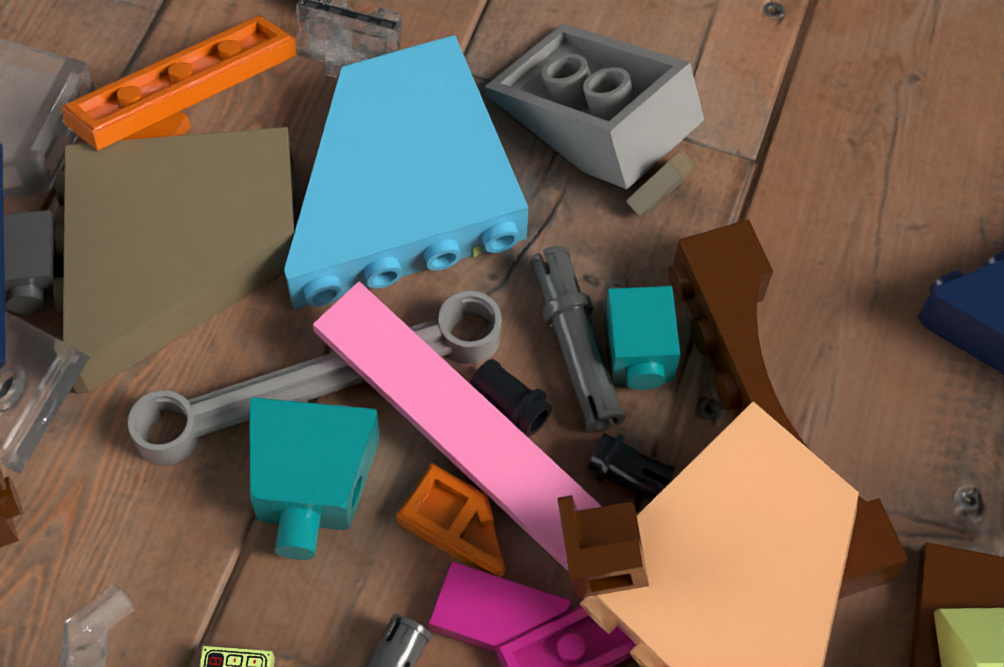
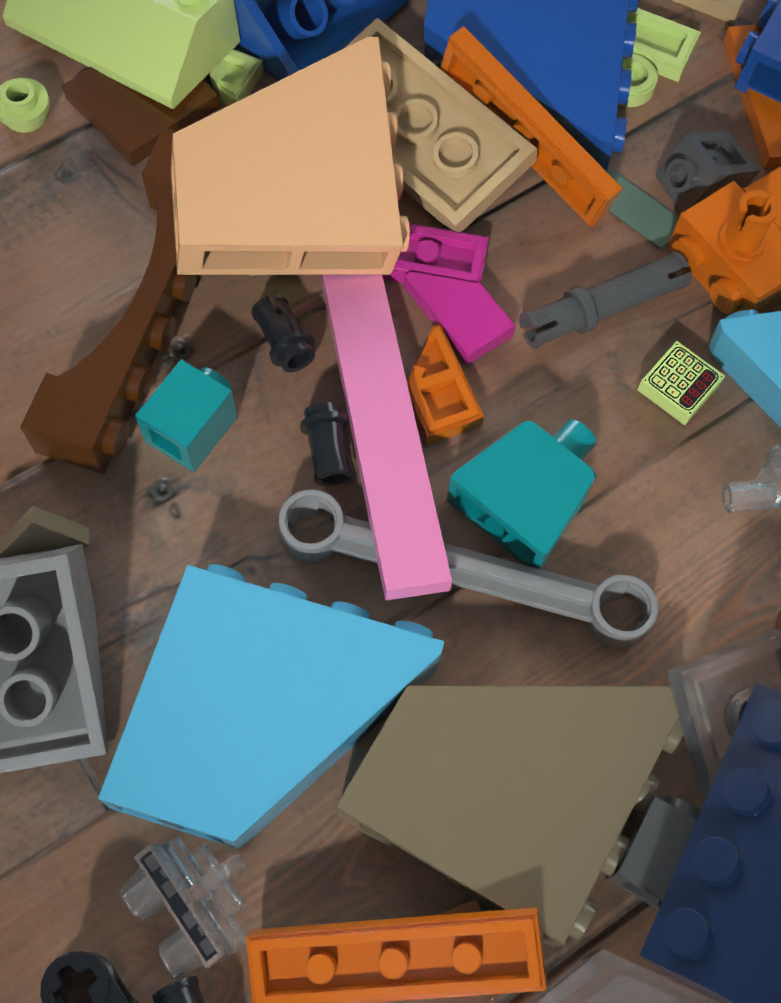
camera: 145 degrees left, 5 degrees up
(569, 315) = (226, 475): dark grey pin -> none
(602, 548) = (377, 225): reddish brown panel -> none

